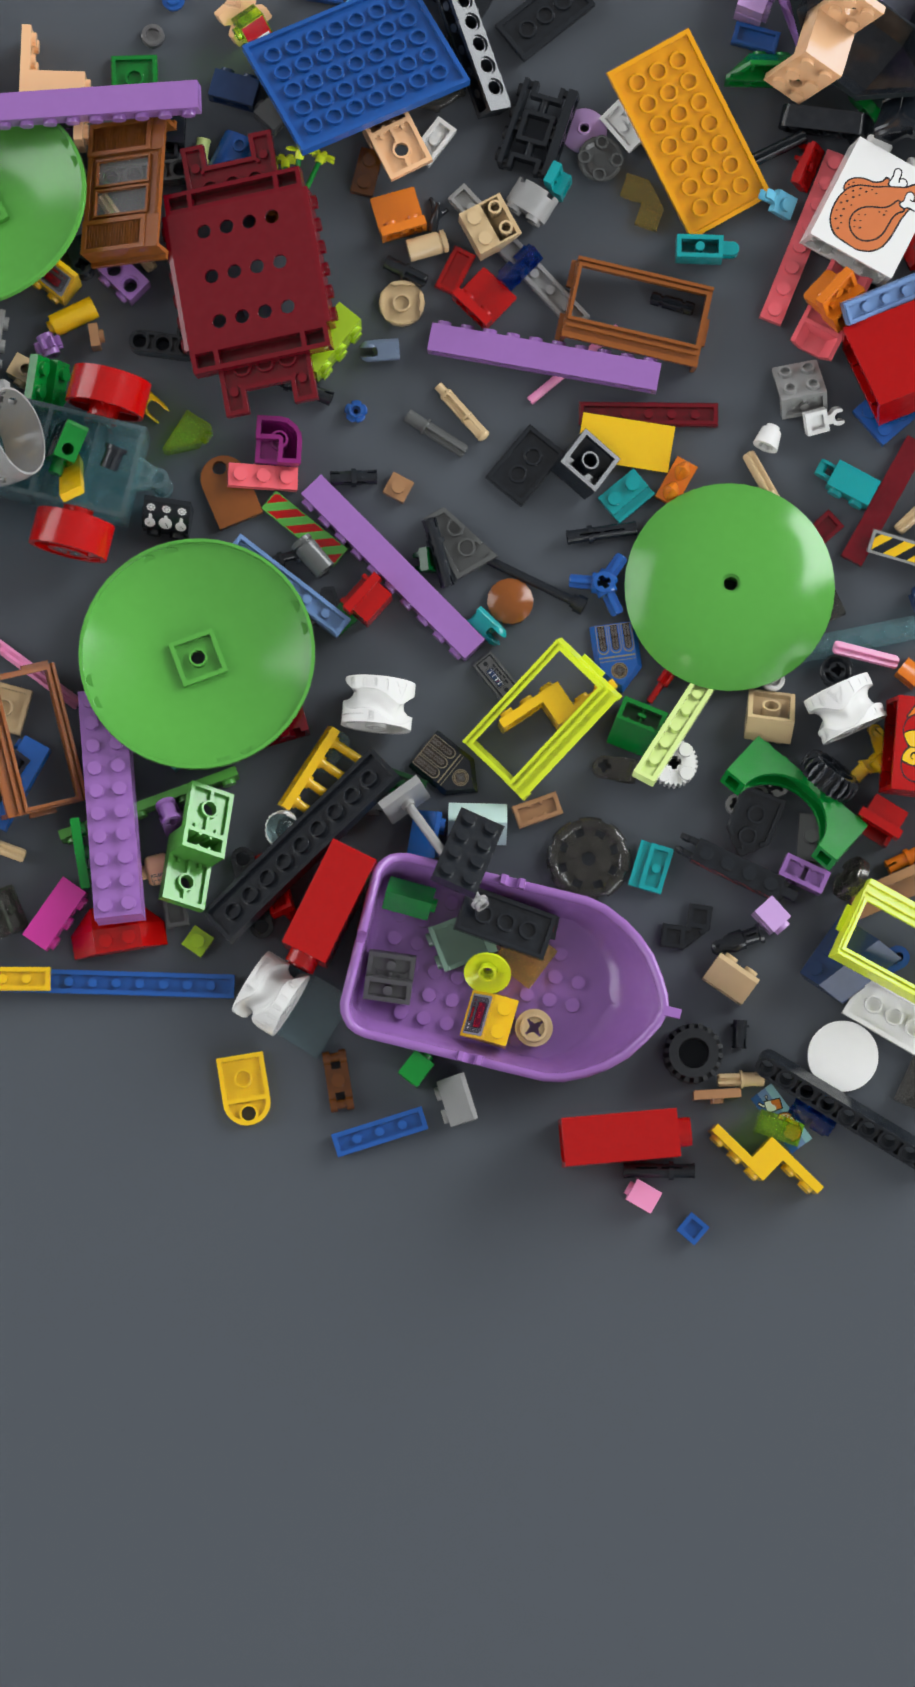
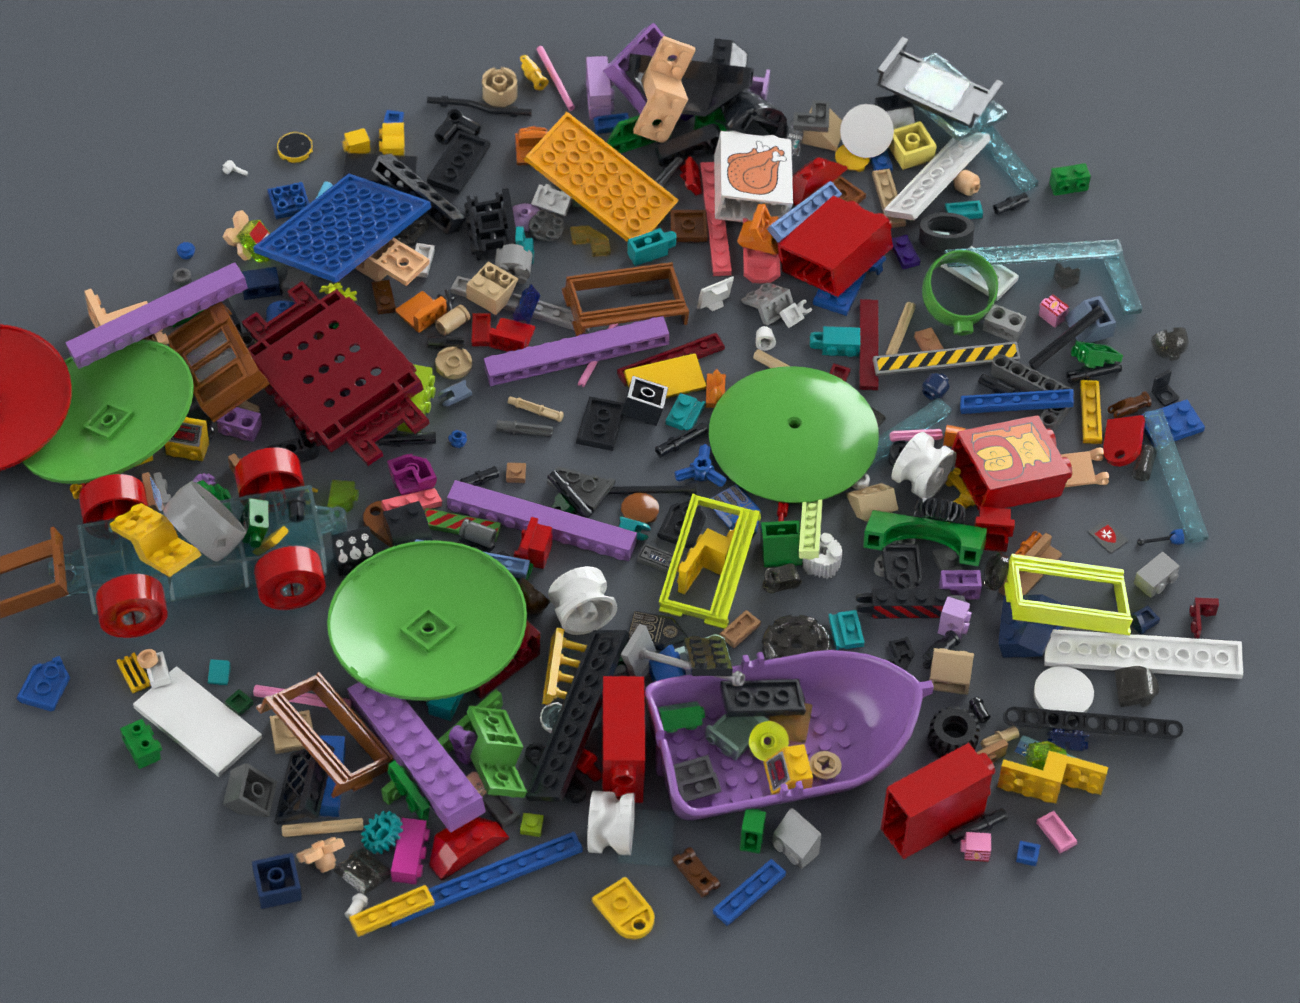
camera: 25 degrees left, 30 degrees down
(36, 881) = (382, 832): none -> teal gear
(72, 316) = (213, 459): yellow brick -> none
(239, 512) = (406, 524): none -> black slope
(329, 667) = (534, 599): none -> dark brown cylinder
(542, 636) = (673, 524): none -> black tile
(643, 27) = (526, 140): none -> orange piece
(739, 1216) = (1056, 832): none -> bright pink tile
(741, 358) = (715, 294): none -> white piece
(765, 236) = (689, 225): none -> reddish brown plate
(780, 202) = (685, 200): medium azure plate -> none

